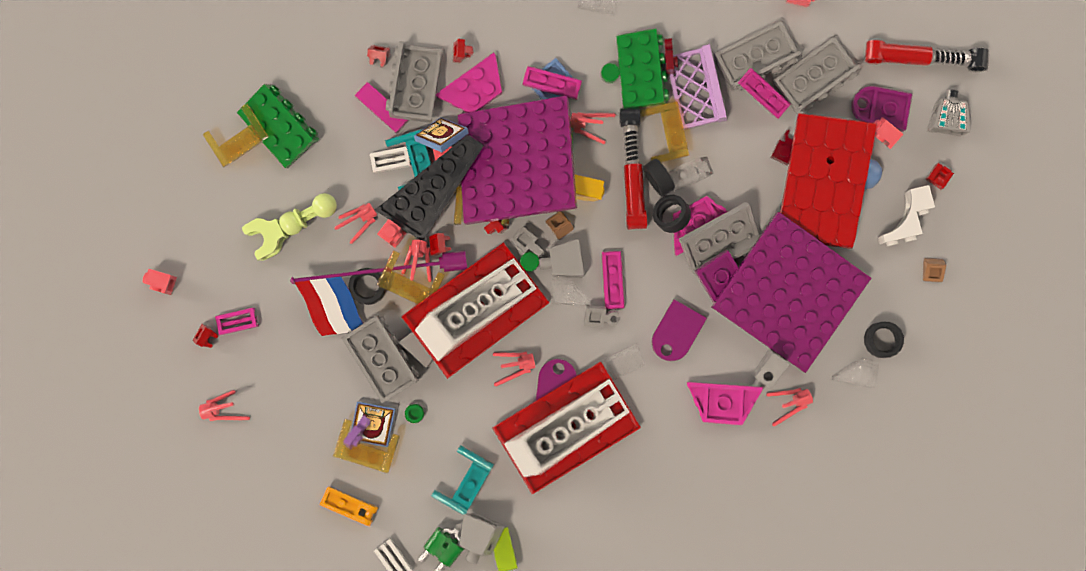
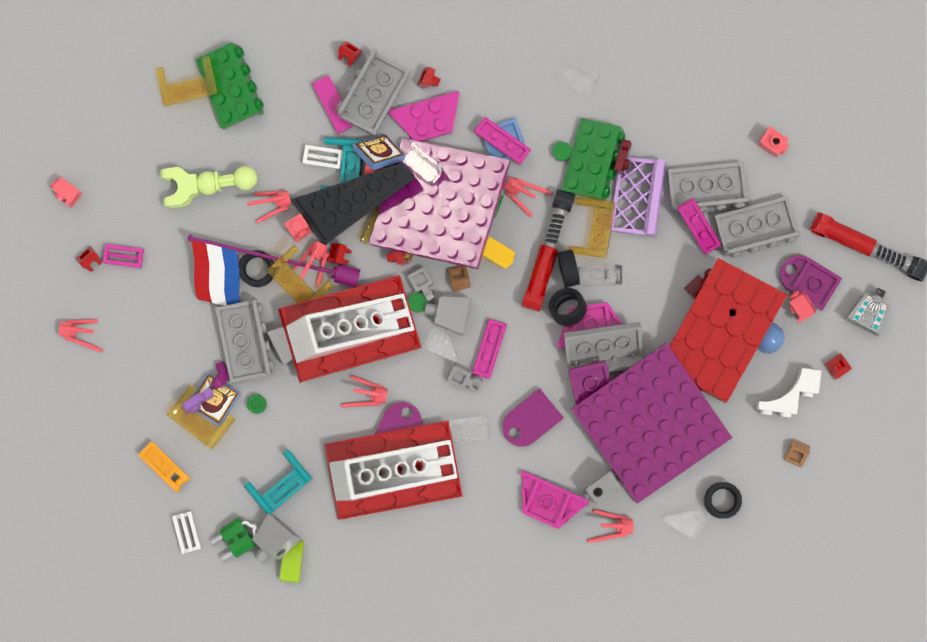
camera: 20 degrees right, 0 degrees up
(372, 400) = (222, 376): none -> magenta arm
(487, 129) = (423, 164): none -> clear panel

